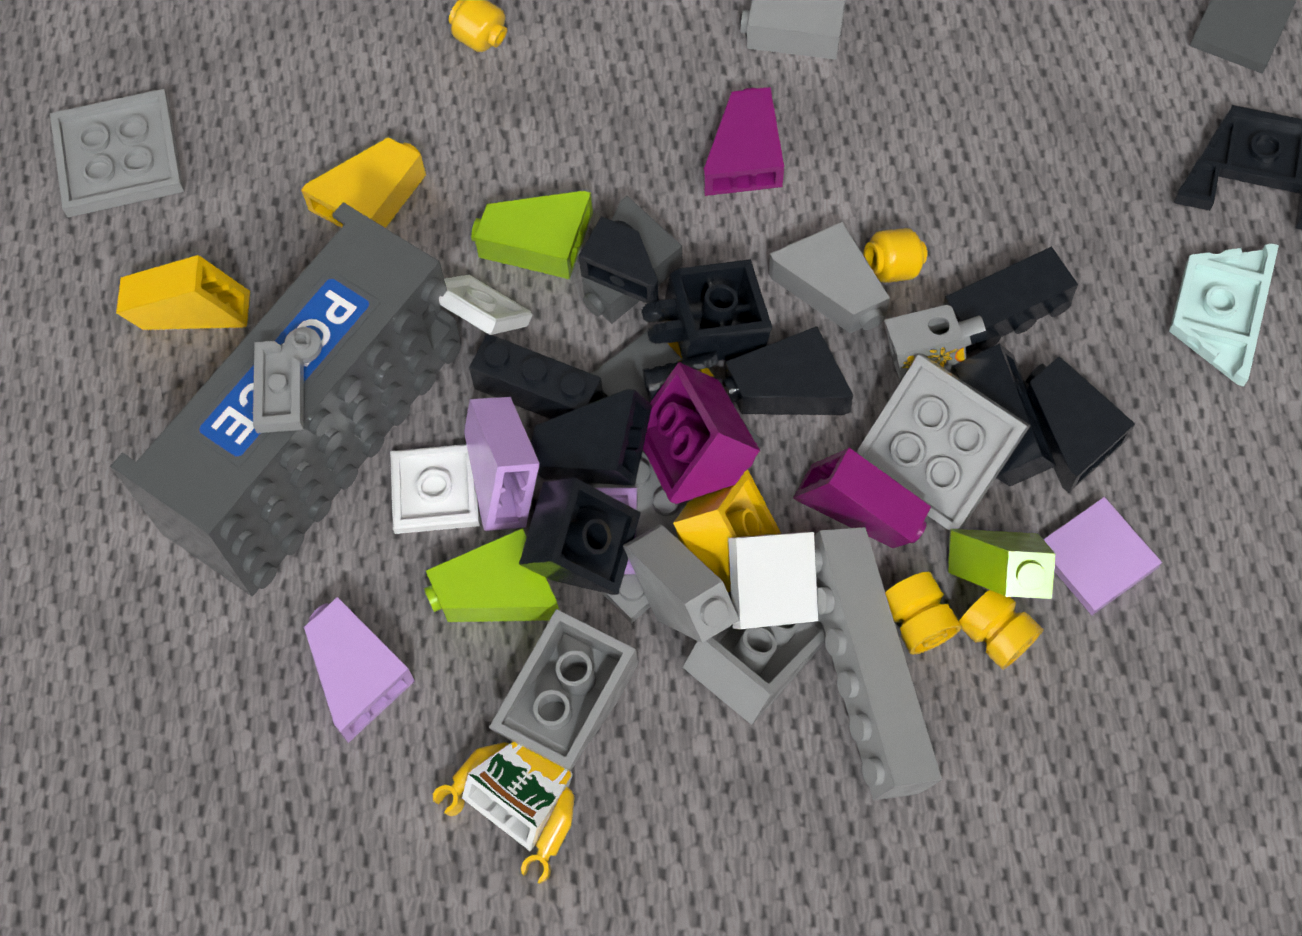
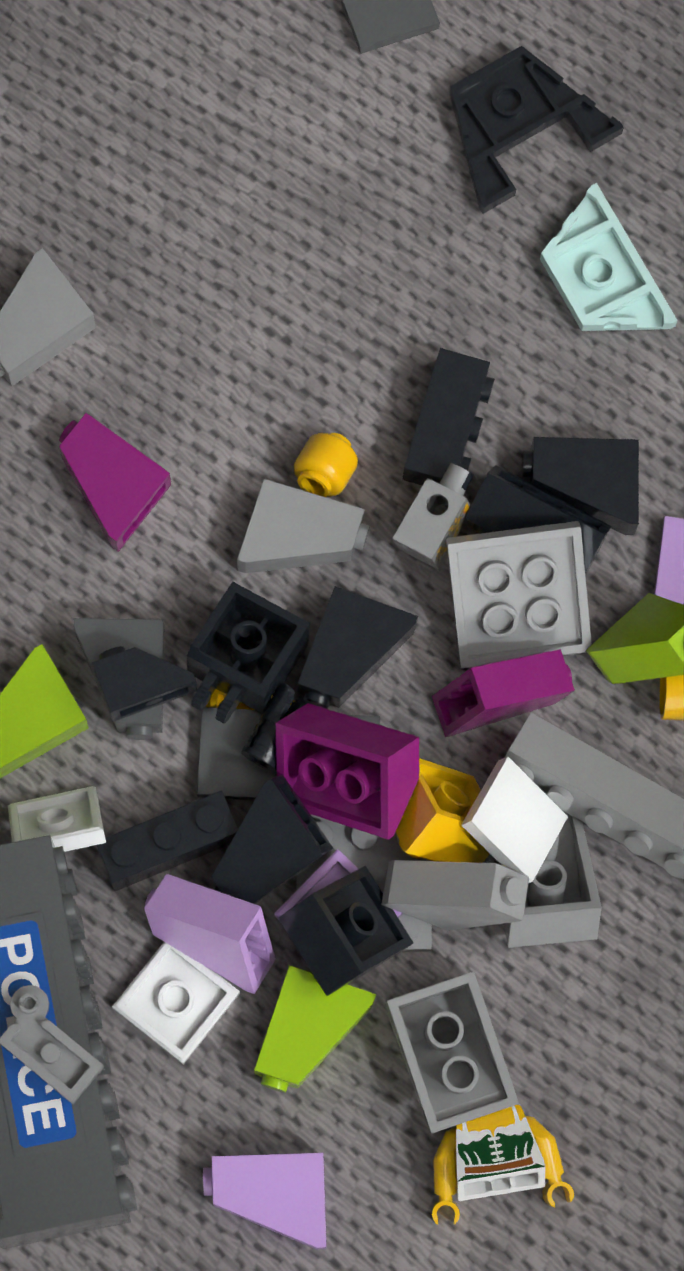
camera: 55 degrees left, 10 degrees up
(924, 620) = (631, 737): yellow wheel -> none

